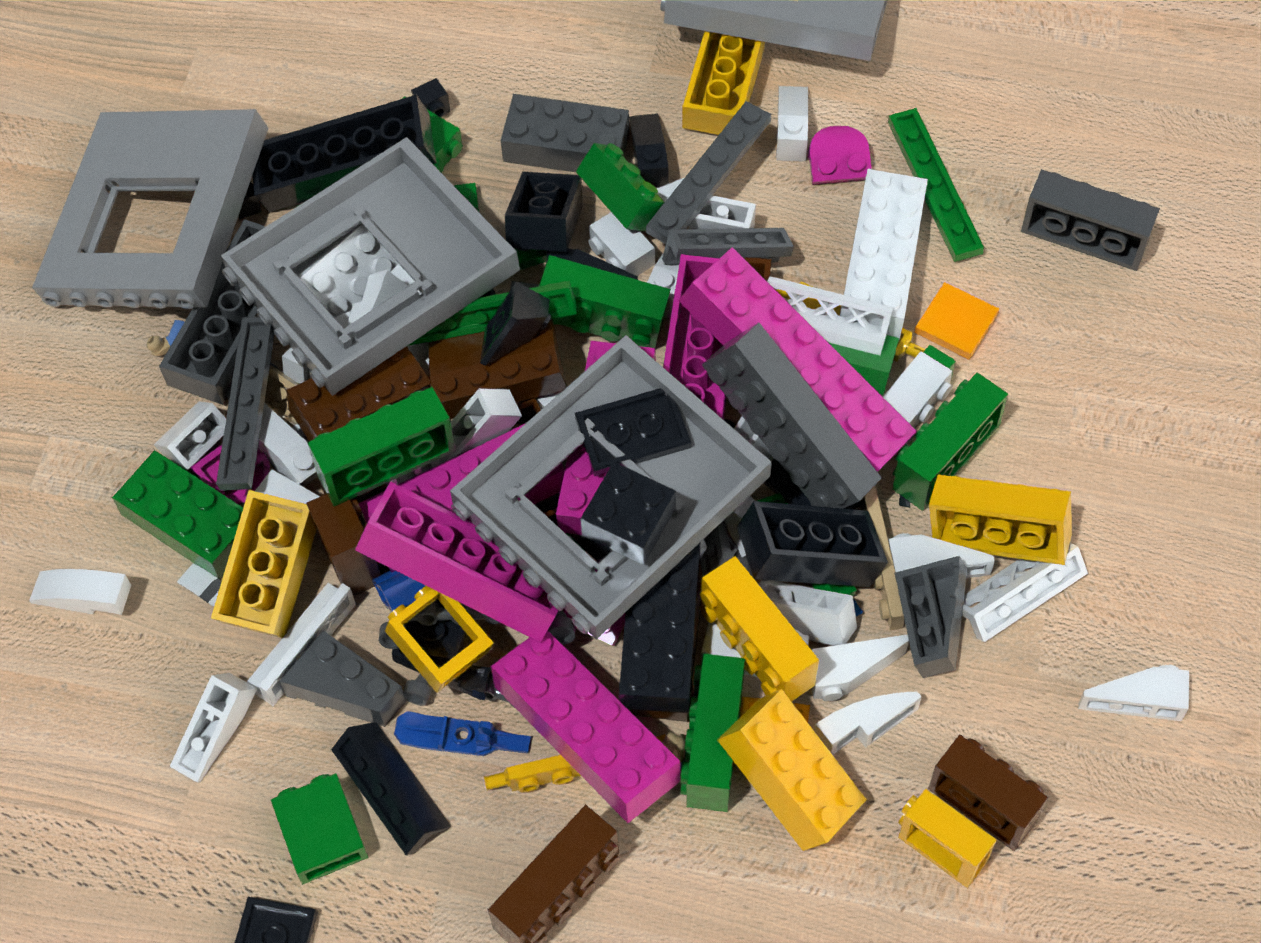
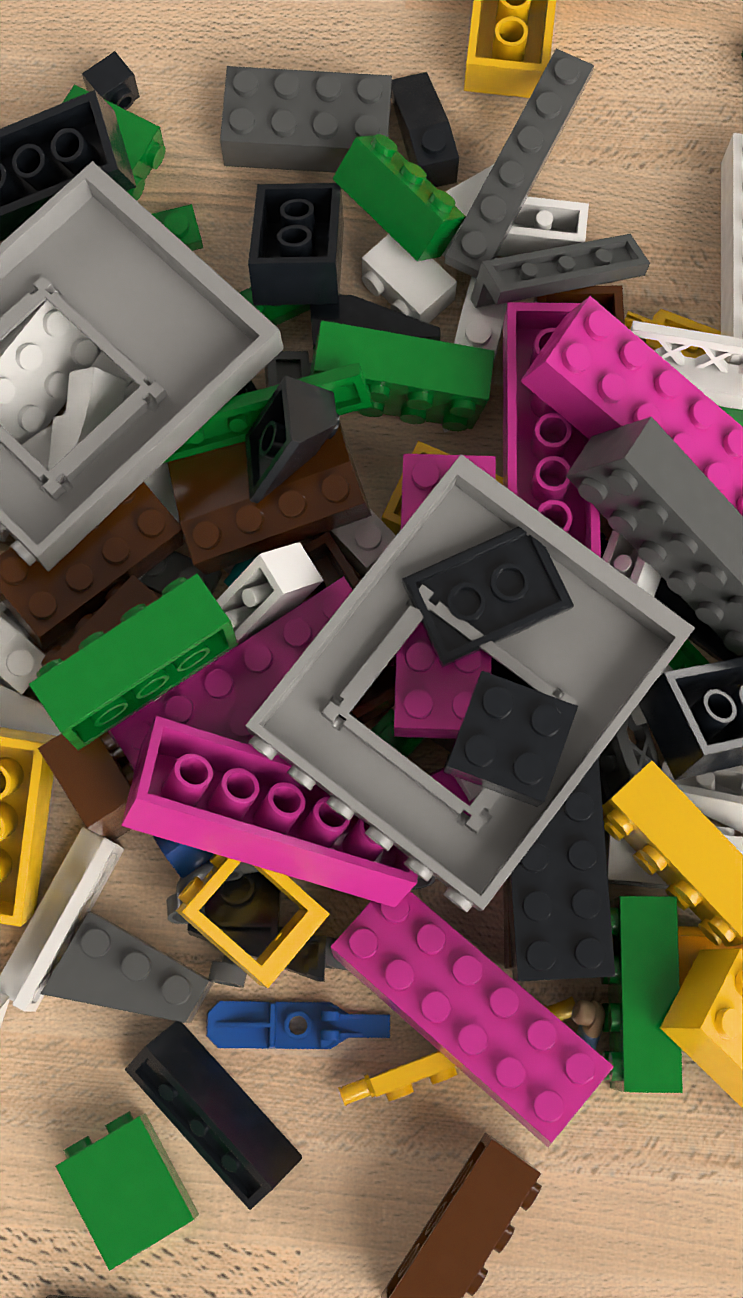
camera: 10 degrees left, 15 degrees up
(792, 123) = (616, 70): white slope -> none
(838, 155) = (684, 112): dark pink slope -> none

